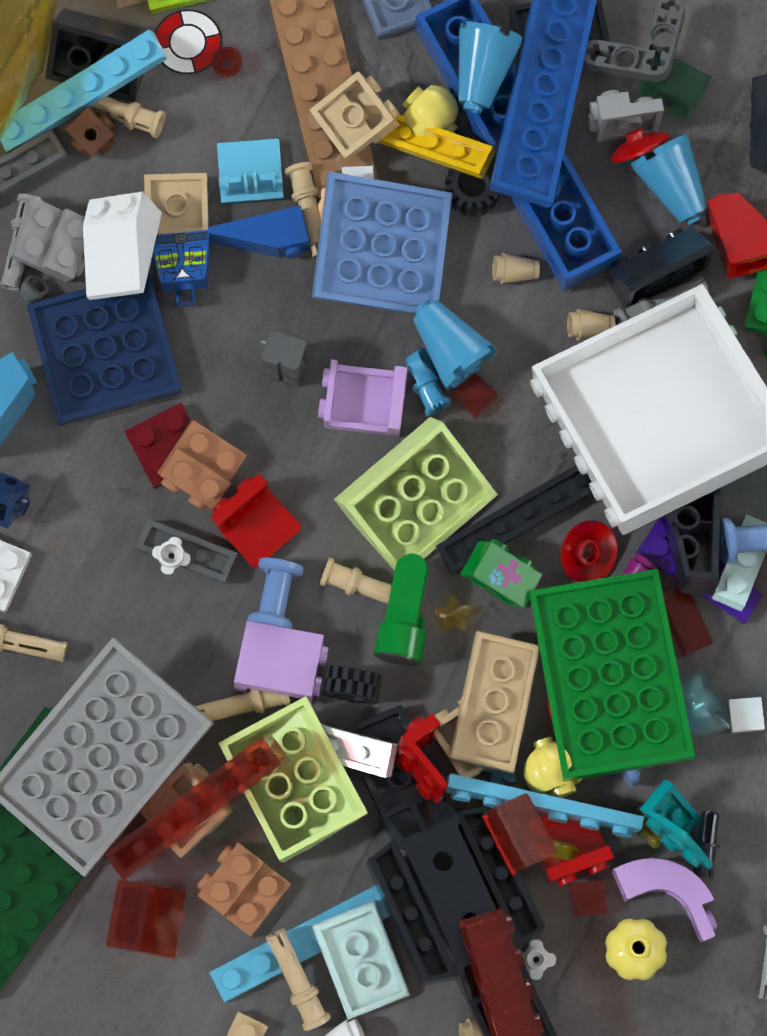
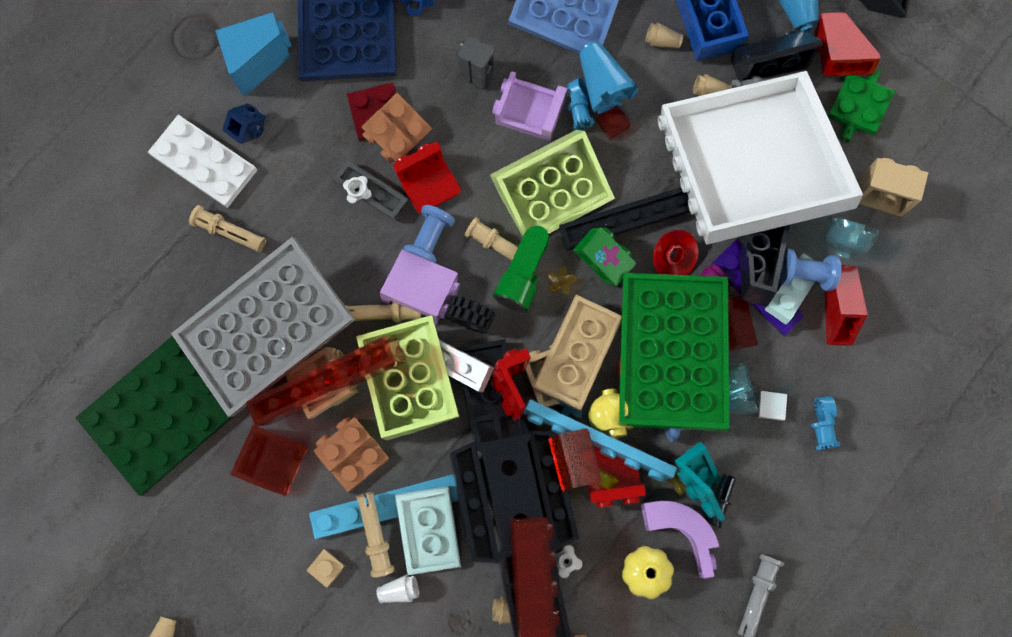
camera: 15 degrees right, 0 degrees up
(587, 898) = (617, 522): clear red plate -> none

